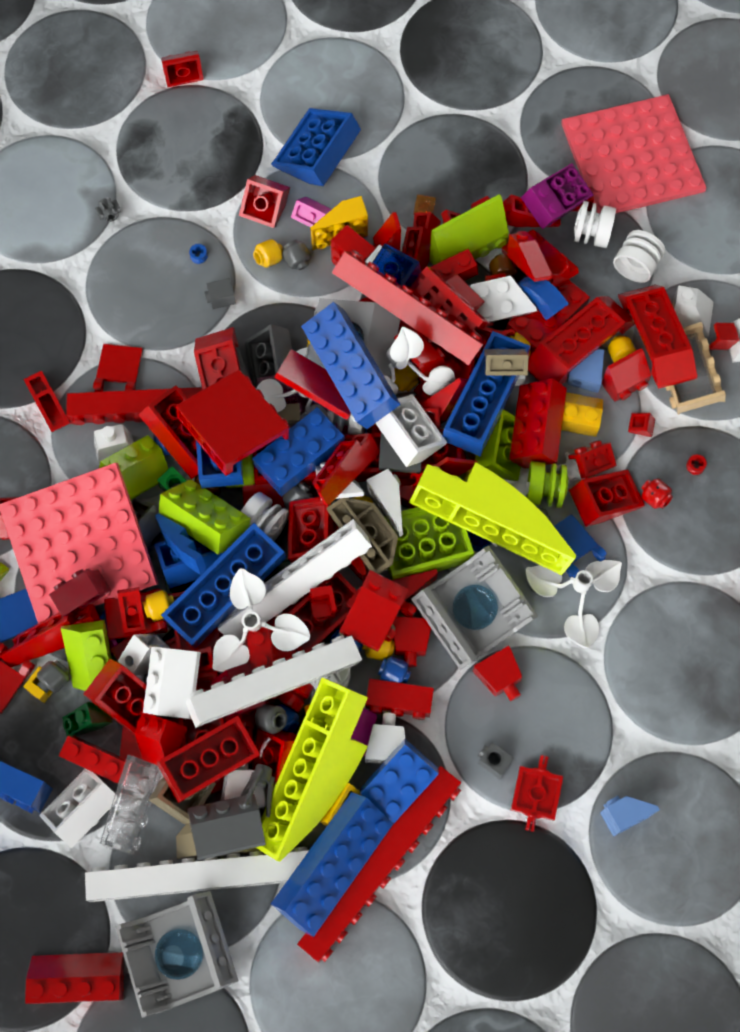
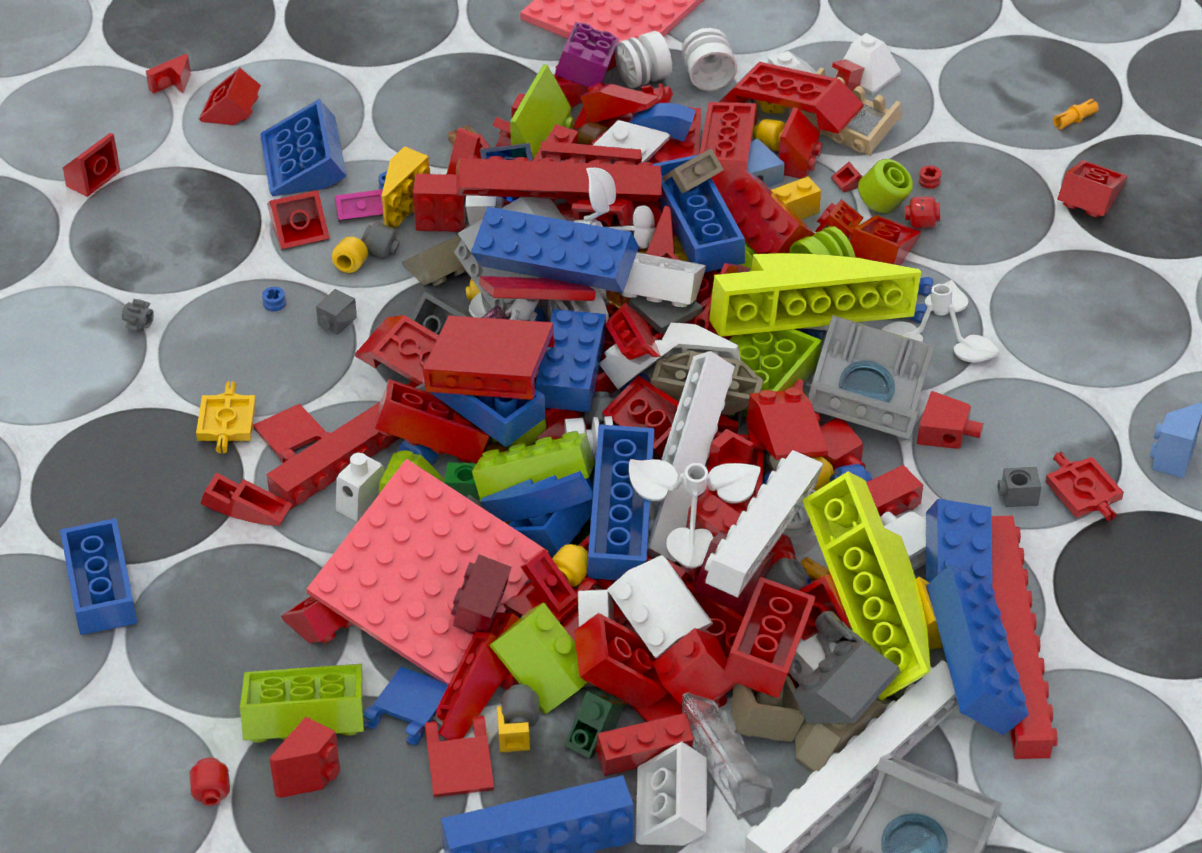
camera: 40 degrees left, 25 degrees down
(90, 328) = (226, 417): none -> yellow plate
(299, 19) = (170, 73): none -> red slope
(308, 295) = (436, 263): none -> dark tan slope
(312, 69) = (231, 99): none -> red slope
(647, 450) = (885, 186): none -> lime head

